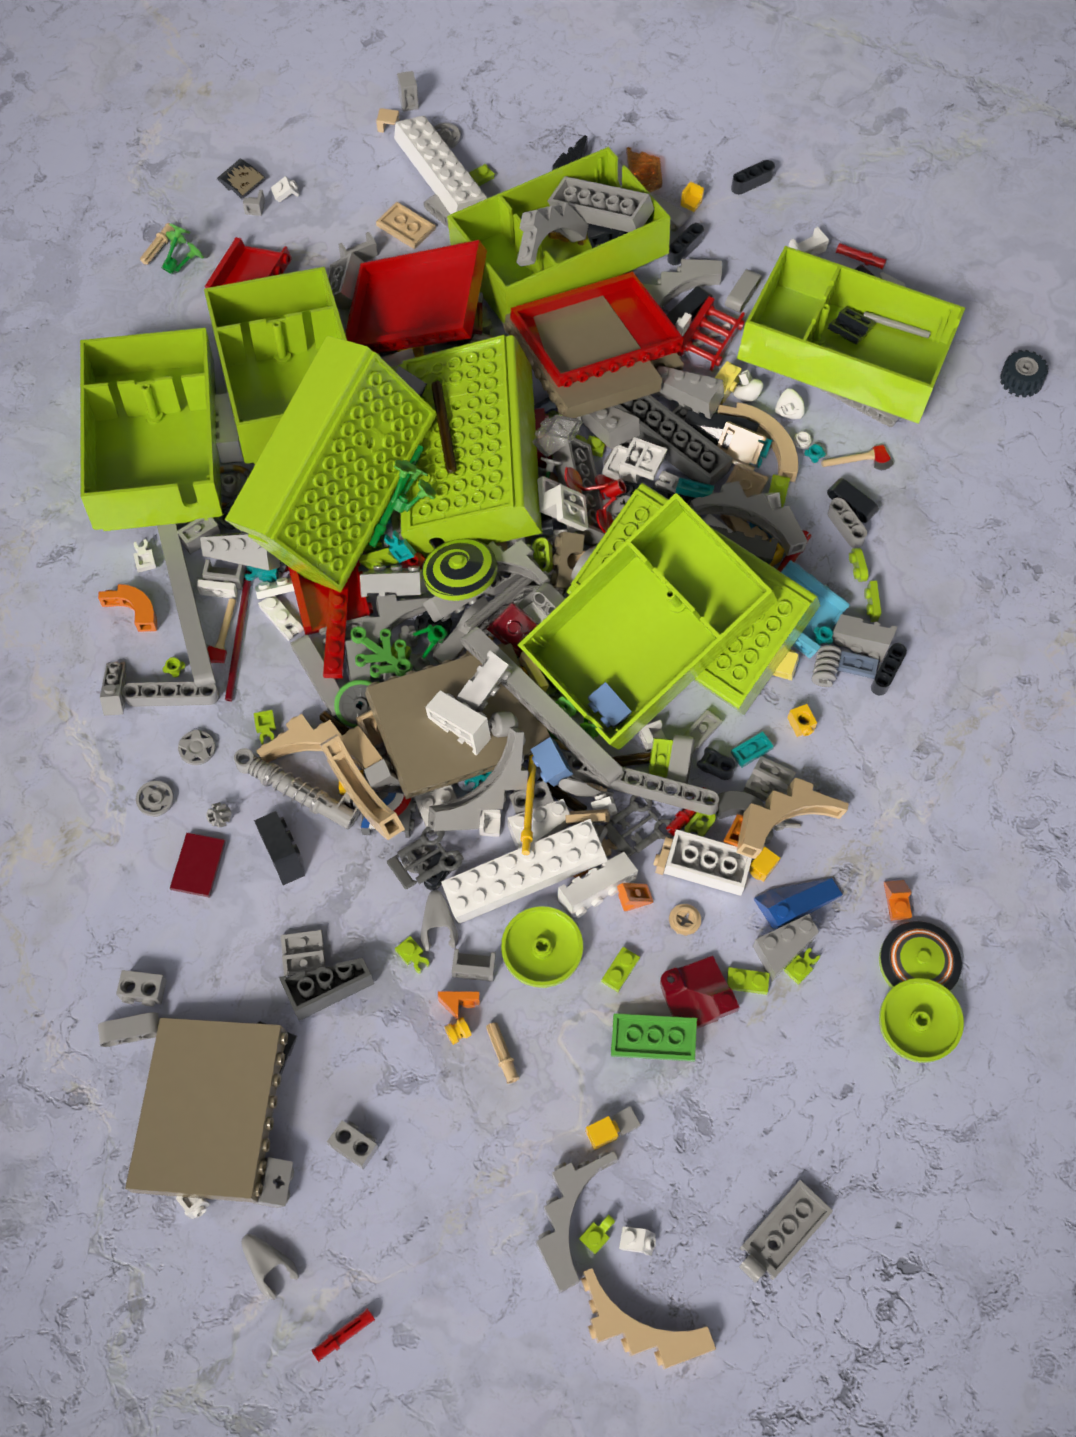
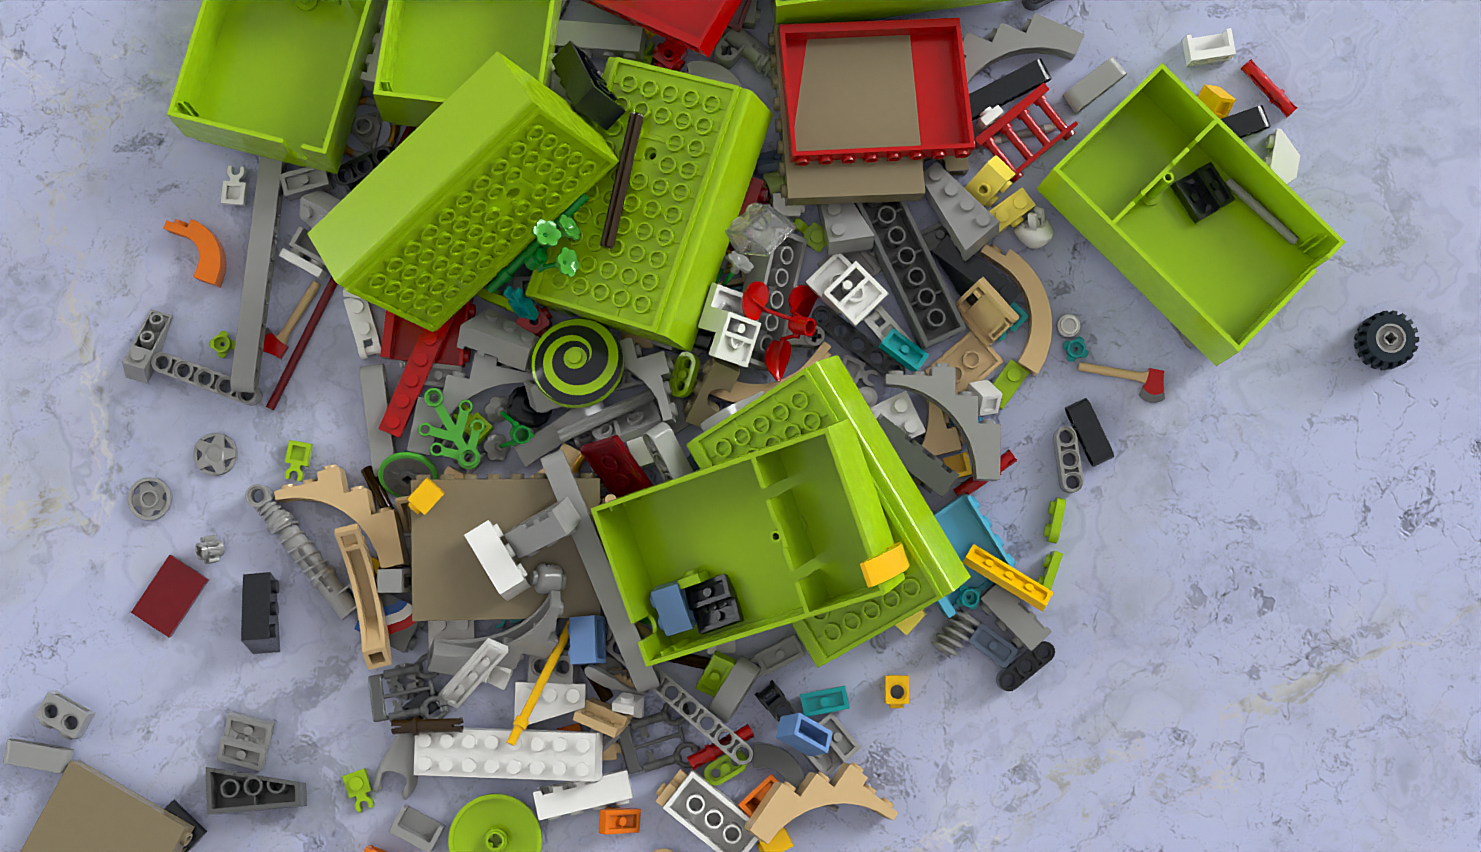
camera: 25 degrees right, 20 degrees up
(383, 690) = (425, 496): none -> yellow brick
(451, 871) = (419, 725): none -> dark brown pin
(472, 819) = (473, 672): none -> white tile
(615, 677) = (693, 577): none -> lime plate
(637, 688) = (714, 604): none -> black slope
(703, 362) = (989, 181): none -> light yellow brick
(749, 770) = (804, 734): none -> medium blue brick
(762, 574) = (885, 565): none -> yellow slope
(790, 405) = (1075, 274): white piece -> none
(854, 609) = (1008, 577): none -> yellow plate

